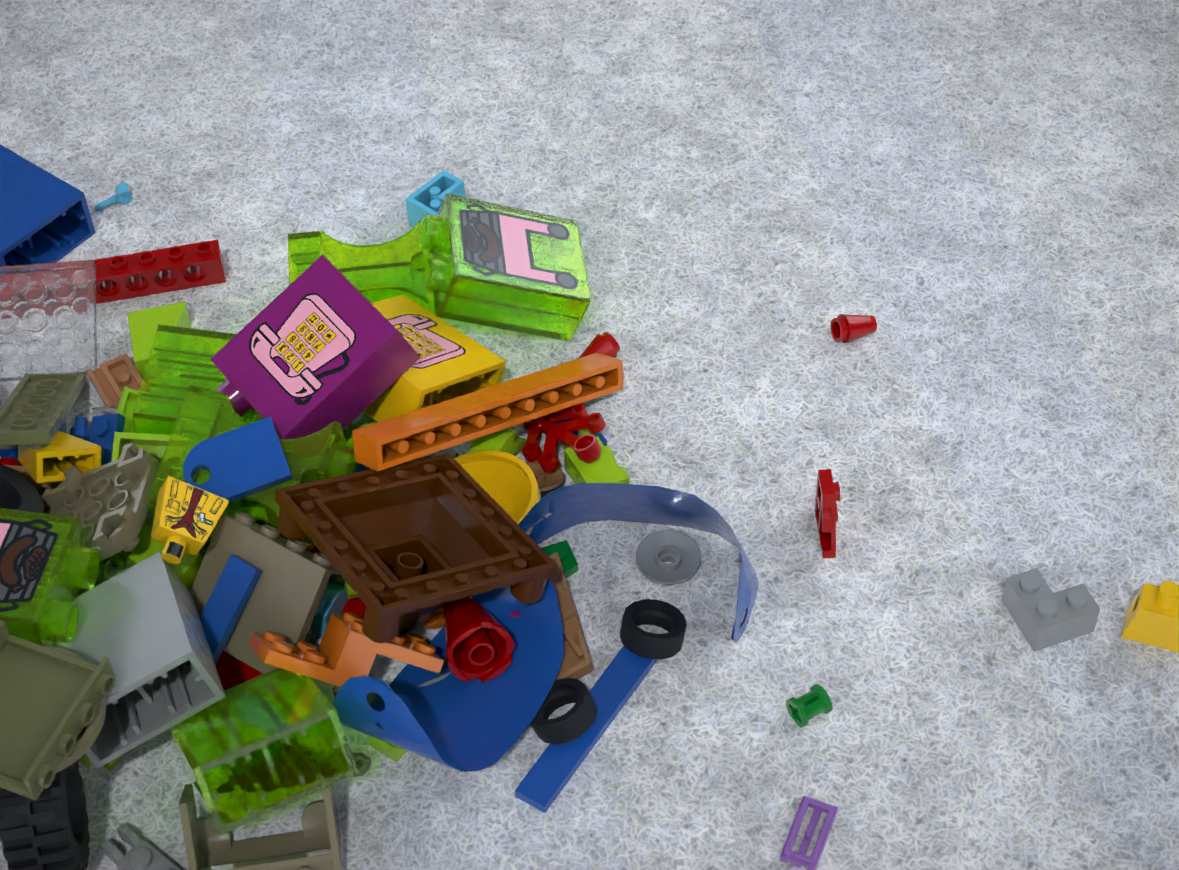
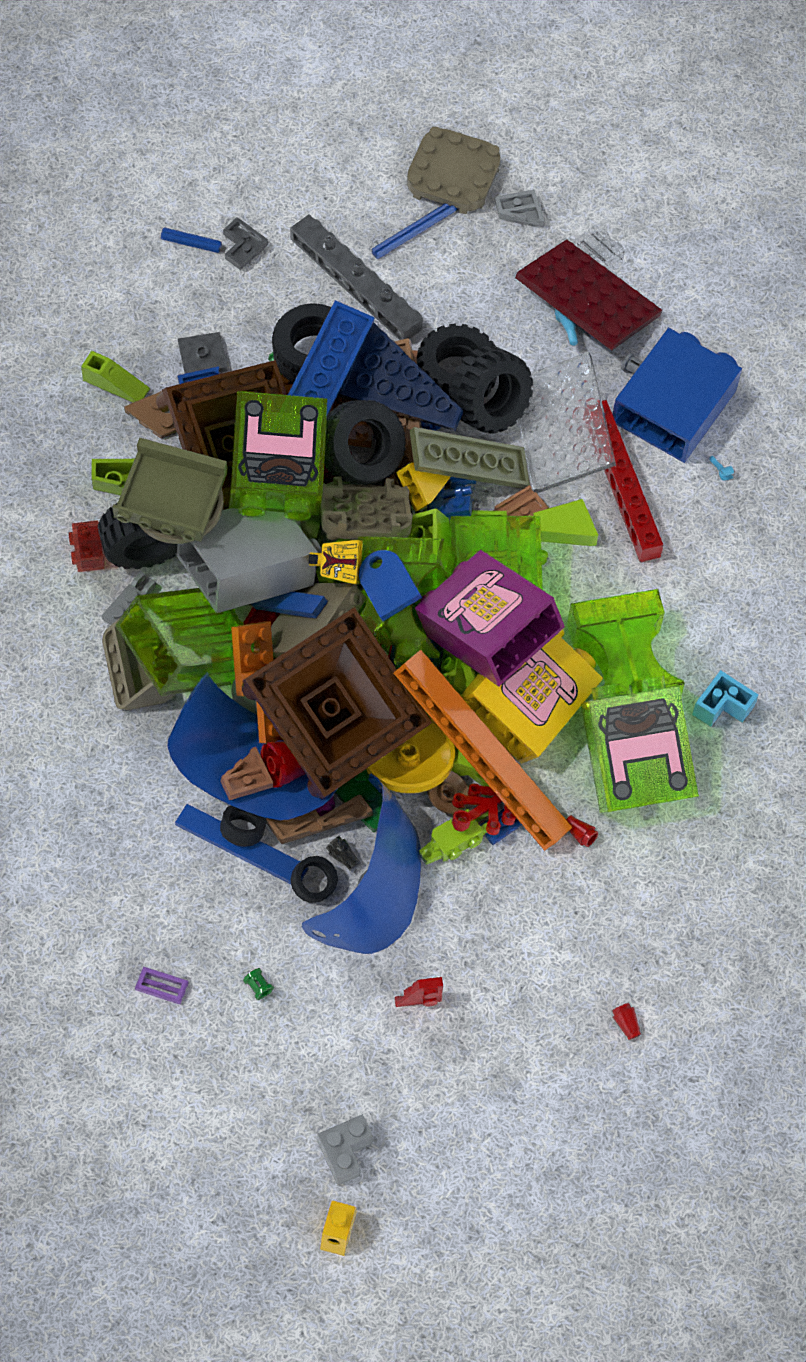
camera: 80 degrees right, 15 degrees up
(489, 693) = (247, 776): none -> nougat wing
(609, 600) = (342, 852): none -> clear smoke cone

